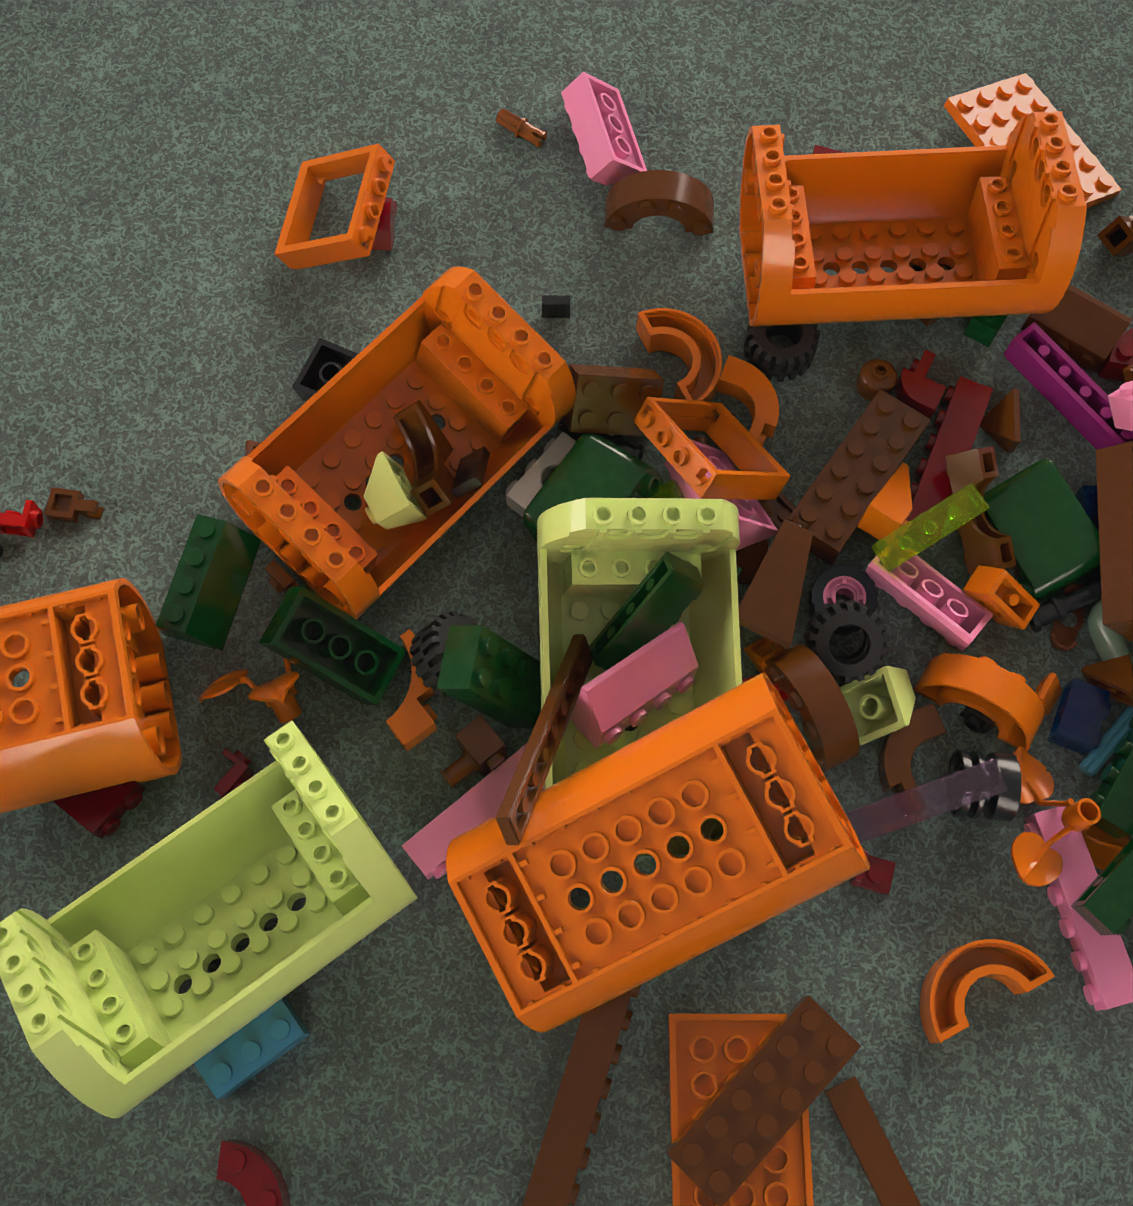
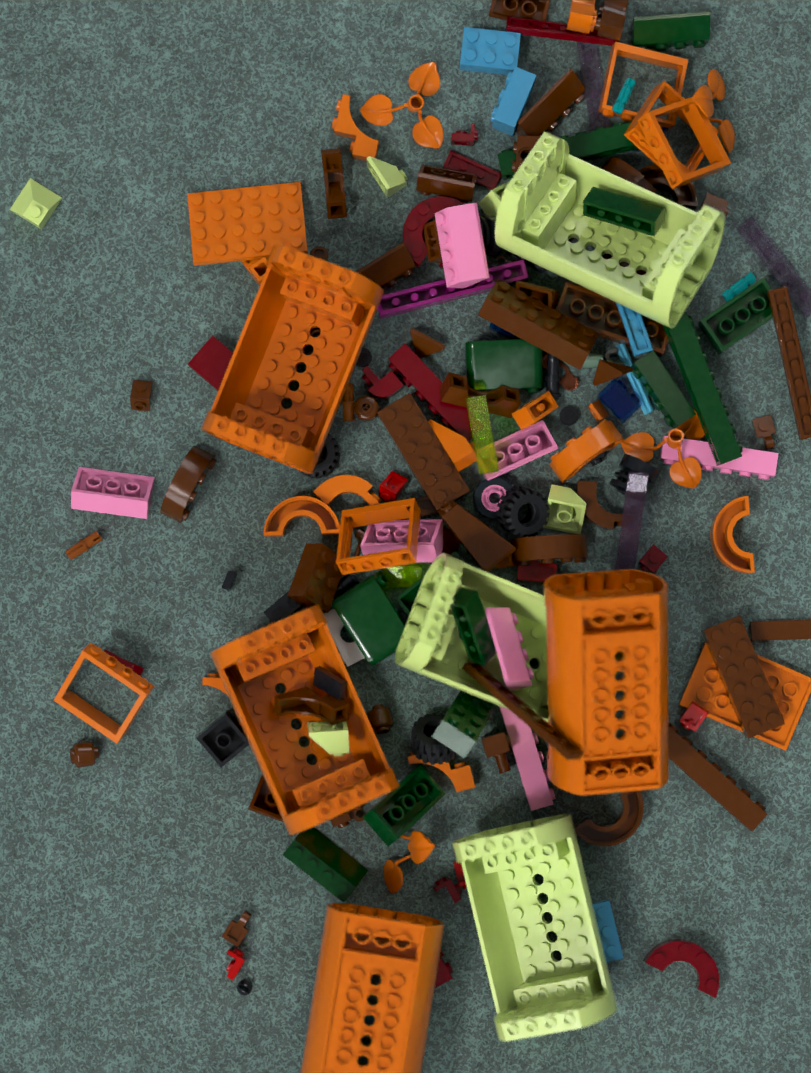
camera: 65 degrees left, 15 degrees up
(245, 225) = (84, 754): none -> reddish brown head
(423, 1000) = (620, 829): none -> reddish brown brick
(450, 573) = (380, 719): none -> reddish brown head
(660, 1044) = (693, 716): none -> red bracket
(742, 116) = (141, 395): none -> reddish brown bracket
(790, 456) = (392, 487): none -> red bracket
(854, 364) = (348, 404): none -> dark orange axle
(944, 352) = (364, 358): none -> black tile
(1015, 657) = (568, 415): none -> black tile

